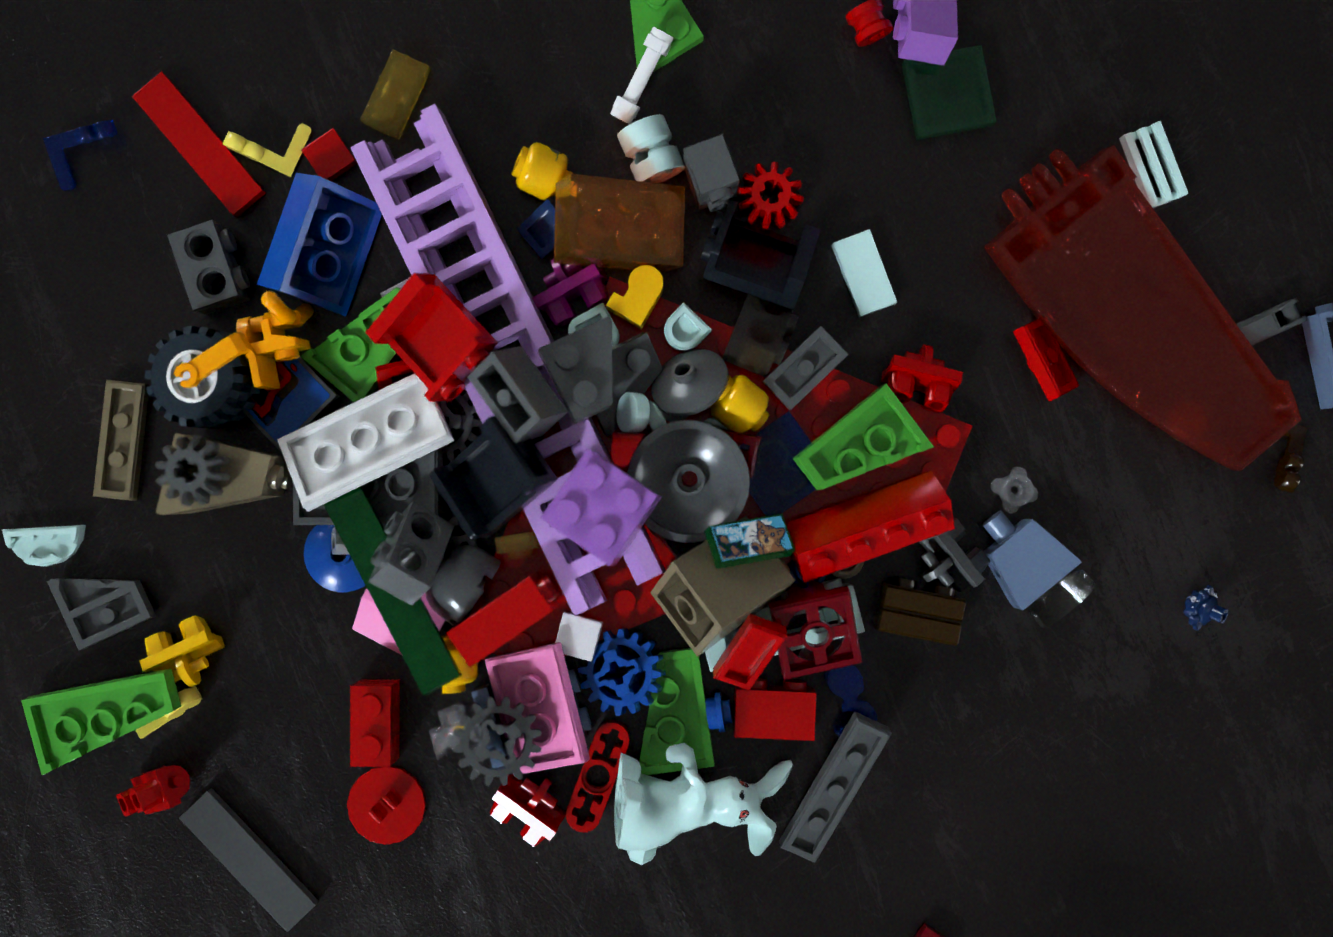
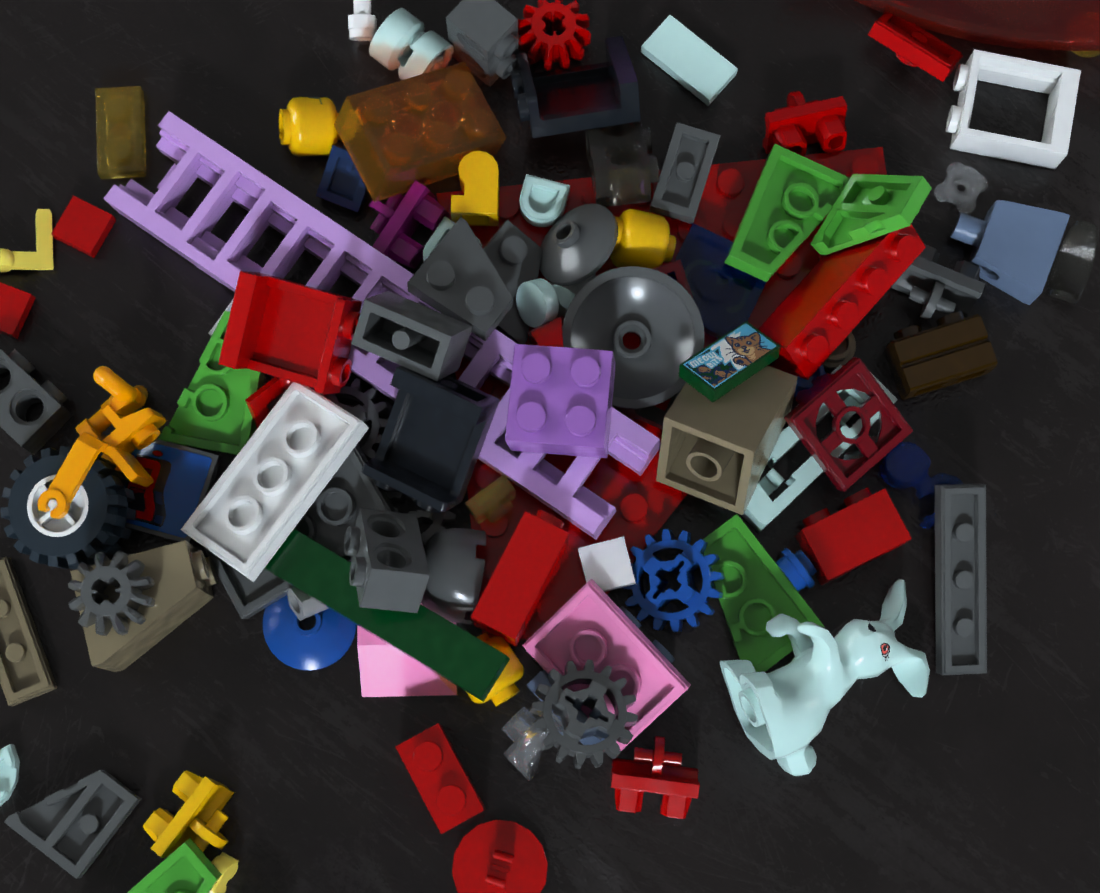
camera: 30 degrees left, 10 degrees down
(320, 243) = (120, 312): blue slope -> none
(597, 806) = (724, 742): red beam -> none
(749, 652) = (793, 477): red tile -> none
(926, 480) = (870, 208): none -> bright green wing
(1122, 477) = (1015, 72): none -> white window

